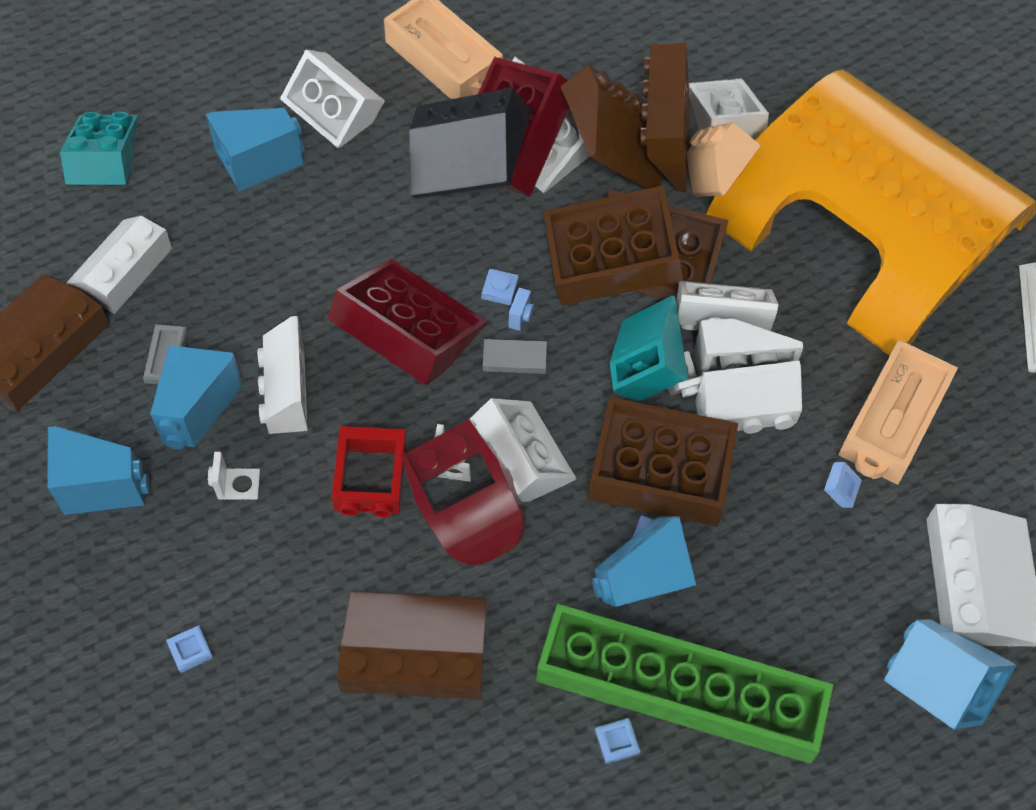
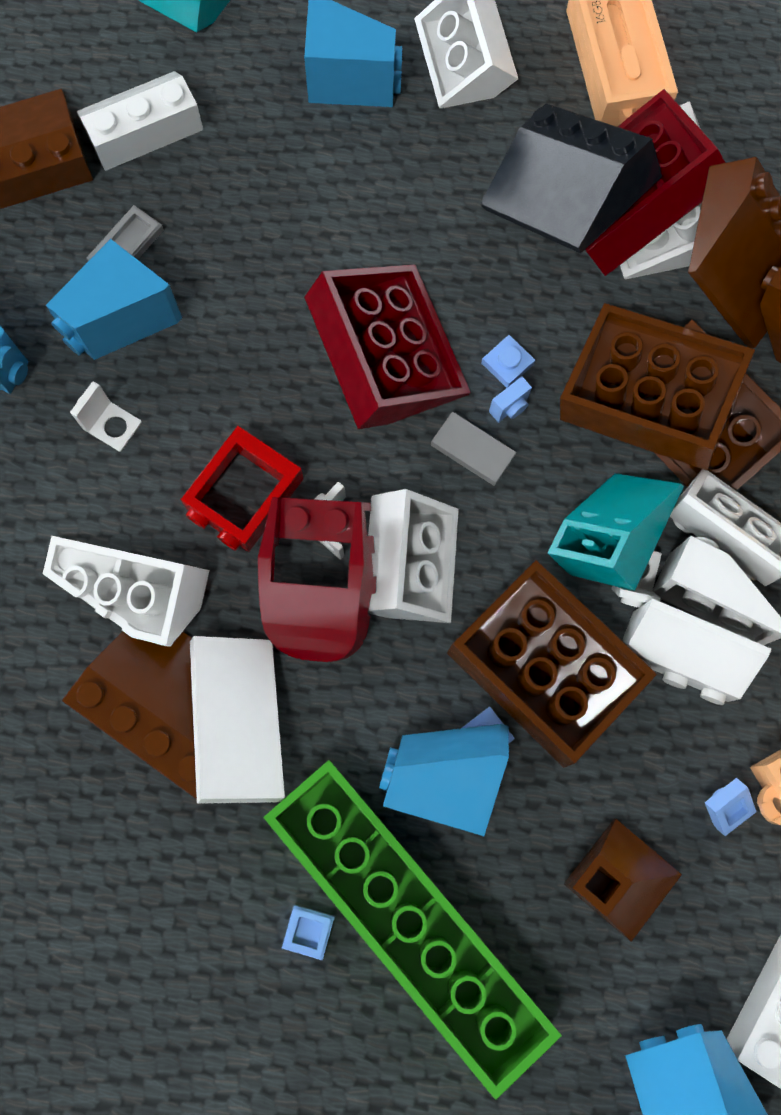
camera: 30 degrees right, 15 degrees up
(283, 379) = (218, 339): white slope -> none
(332, 581) = (137, 592): none -> white wedge
(472, 620) = (235, 721): none -> white tile
(805, 574) = (622, 879): none -> reddish brown slope

